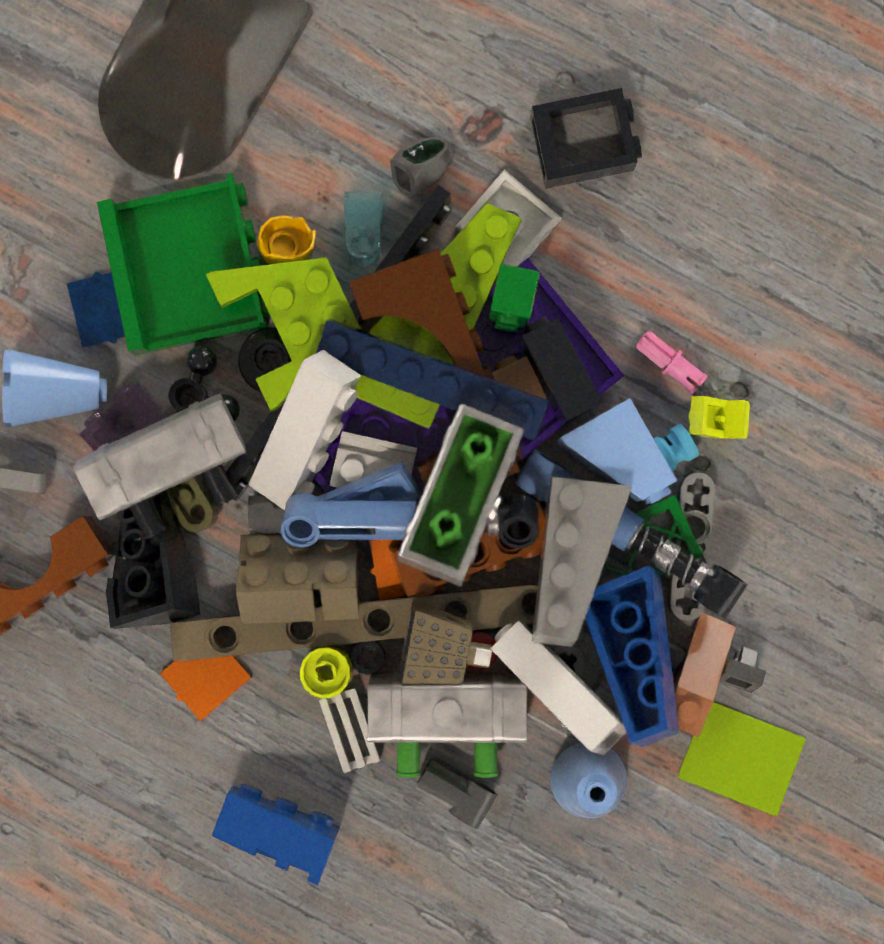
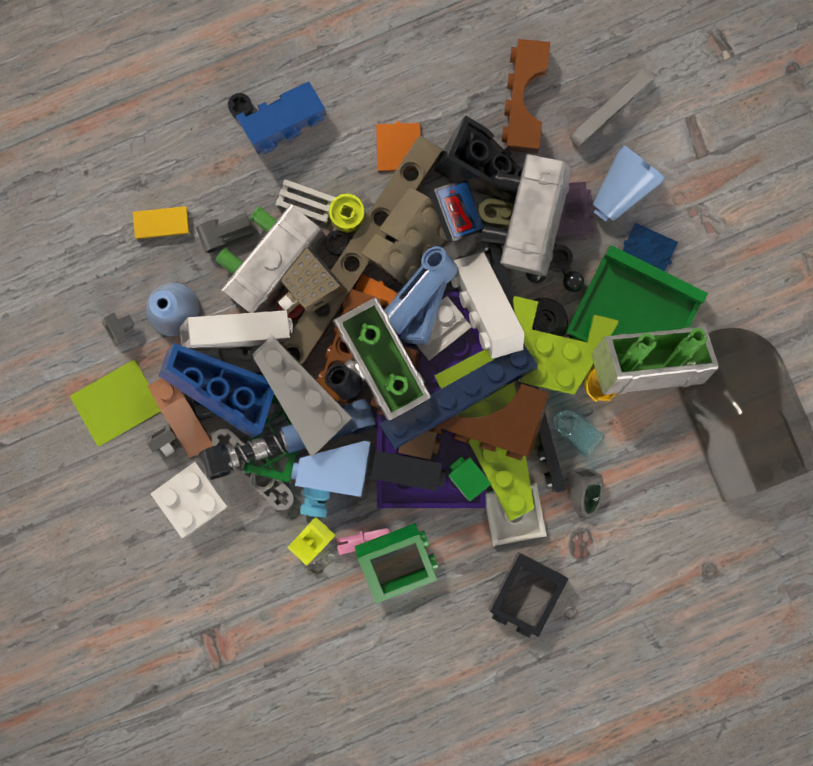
camera: 130 degrees right, 0 degrees up
(218, 198) = (654, 360): none -> piece
(226, 549) = (457, 210): none -> slope
(290, 898) = (240, 96): none -> black bush
(503, 872) = (161, 222): none -> yellow tile
(651, 327) = (386, 544): none -> green window
(660, 824) = (117, 328): none -> dark grey tile
(783, 587) = (190, 499): none -> white brick

